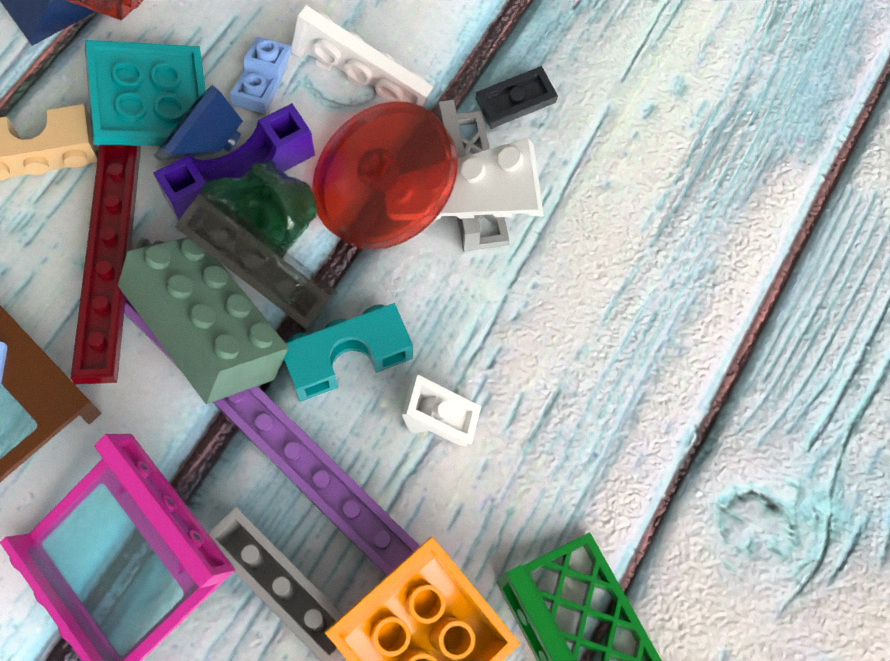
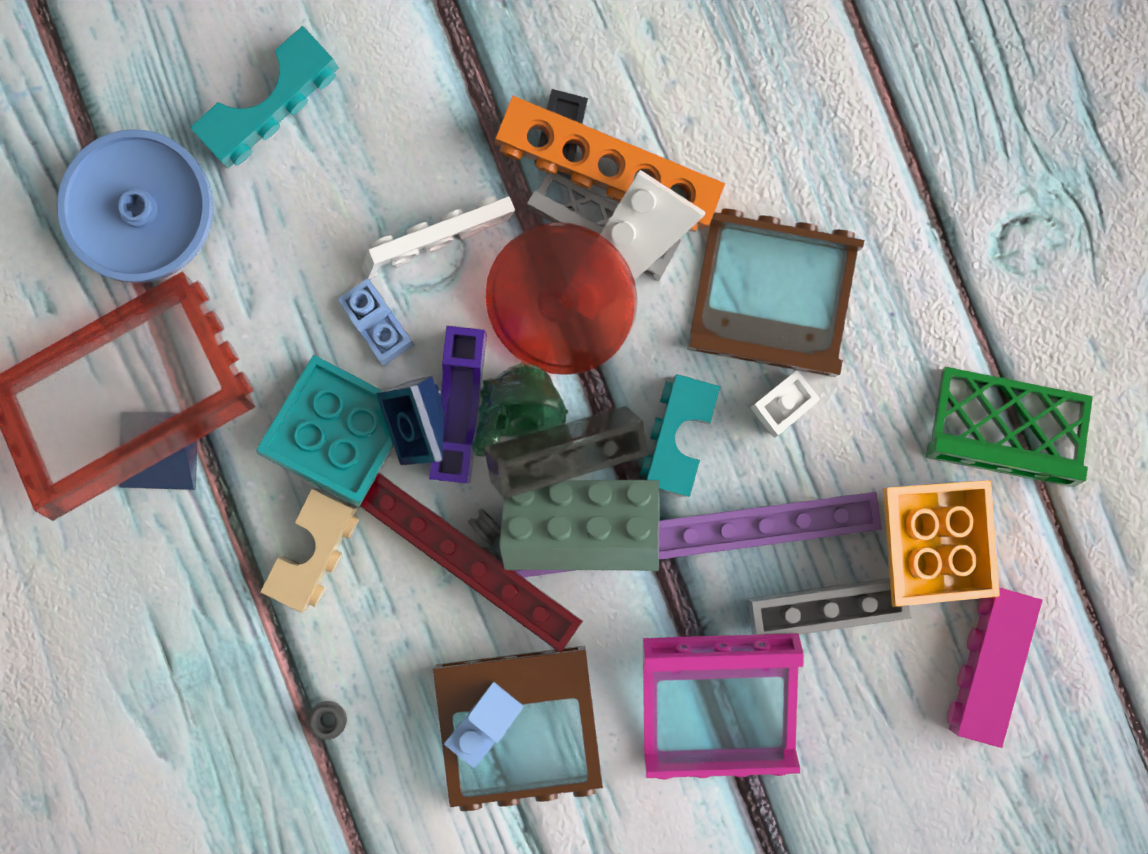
camera: 50 degrees left, 20 degrees up
(499, 53) = (595, 145): none -> orange brick
(530, 343) = (774, 293): none -> clear light blue panel

